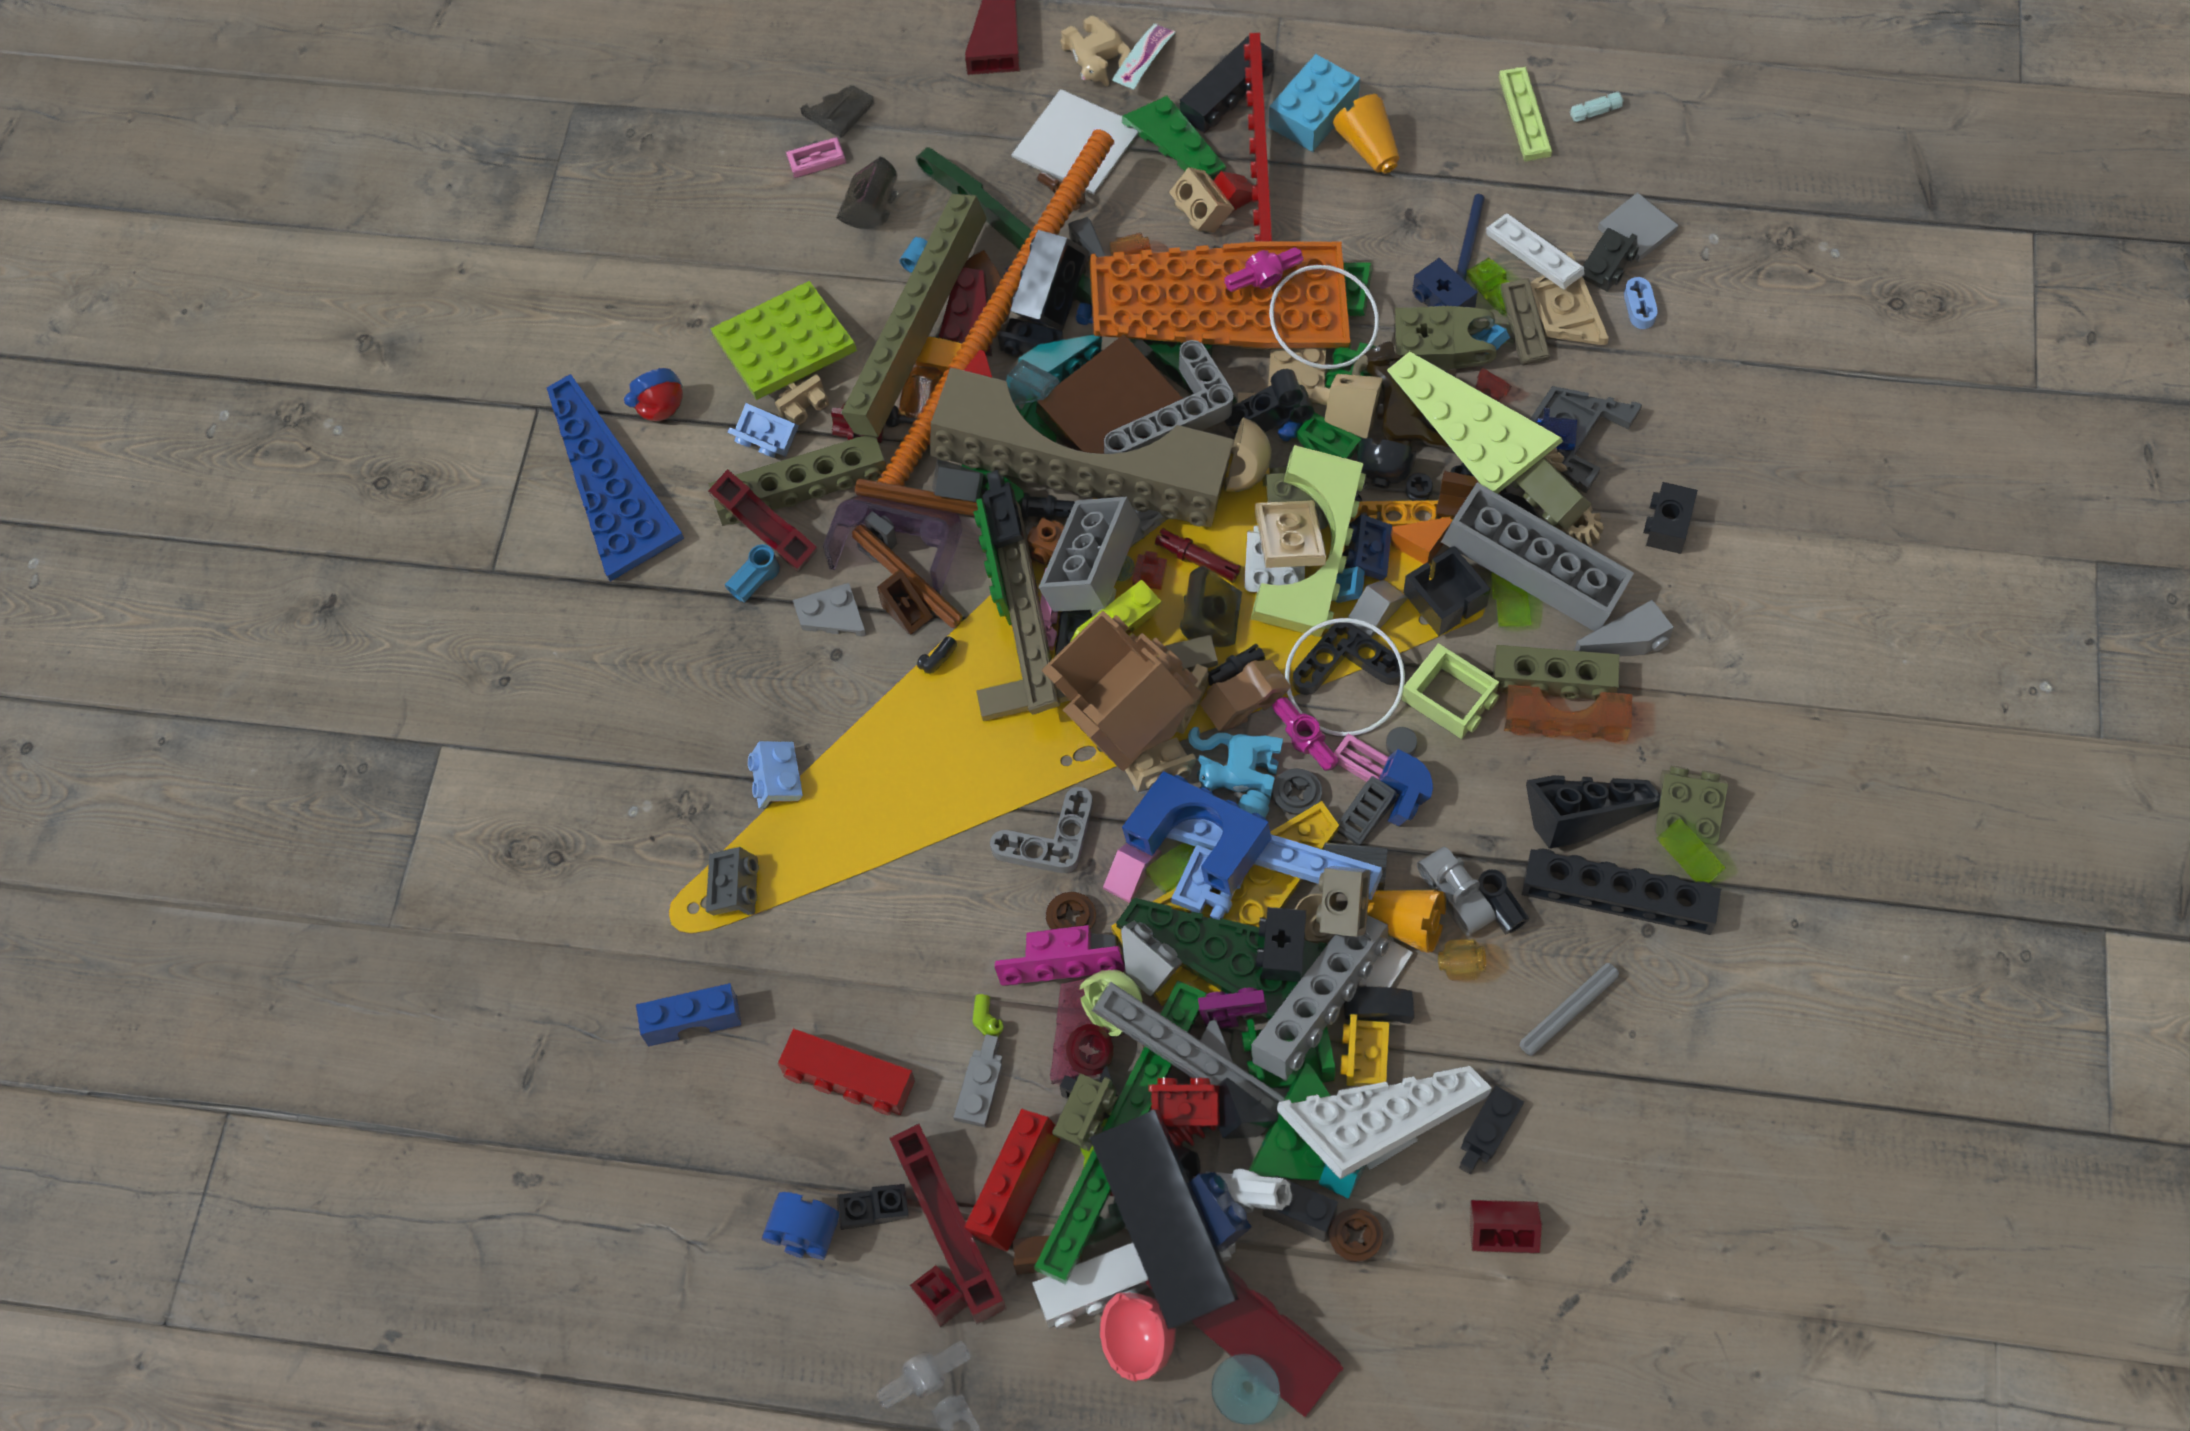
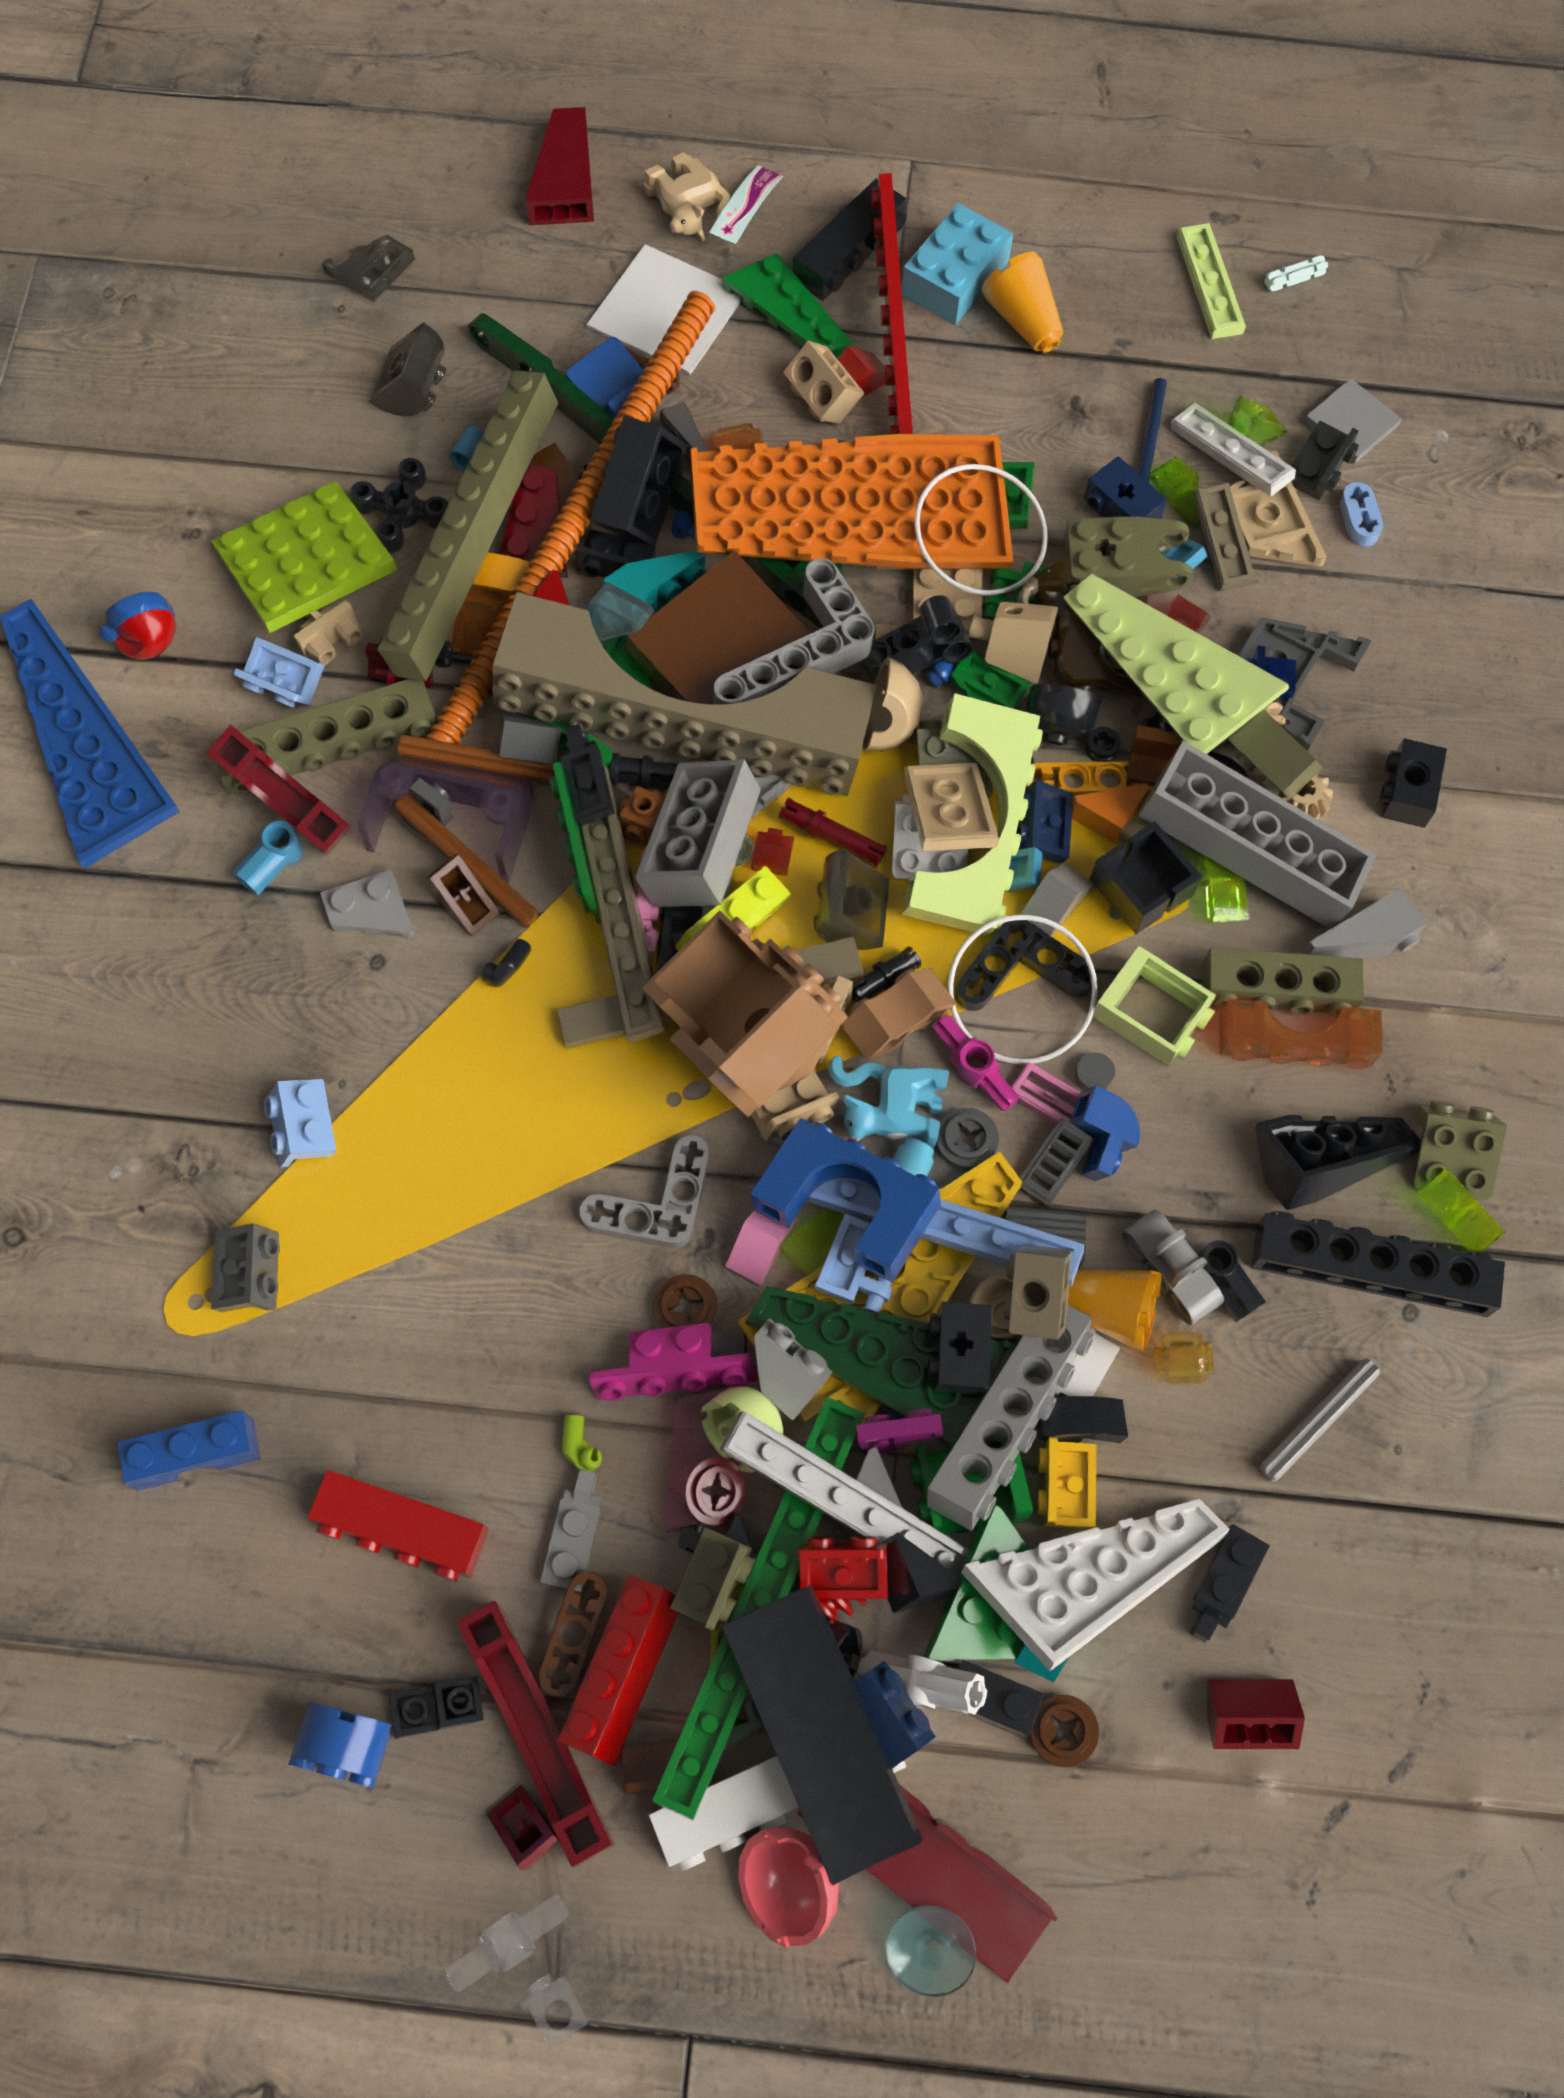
camera: 10 degrees left, 5 degrees up
(817, 160) = (343, 330): bright pink tile -> none
(859, 298) = (399, 504): none -> black gear
(993, 1133) = (551, 1660): none -> reddish brown beam
(1026, 195) = (606, 375): none -> blue bracket
(1263, 269) = (906, 469): dark pink axle -> none
(1556, 228) = (1256, 421): none -> clear neon green slope

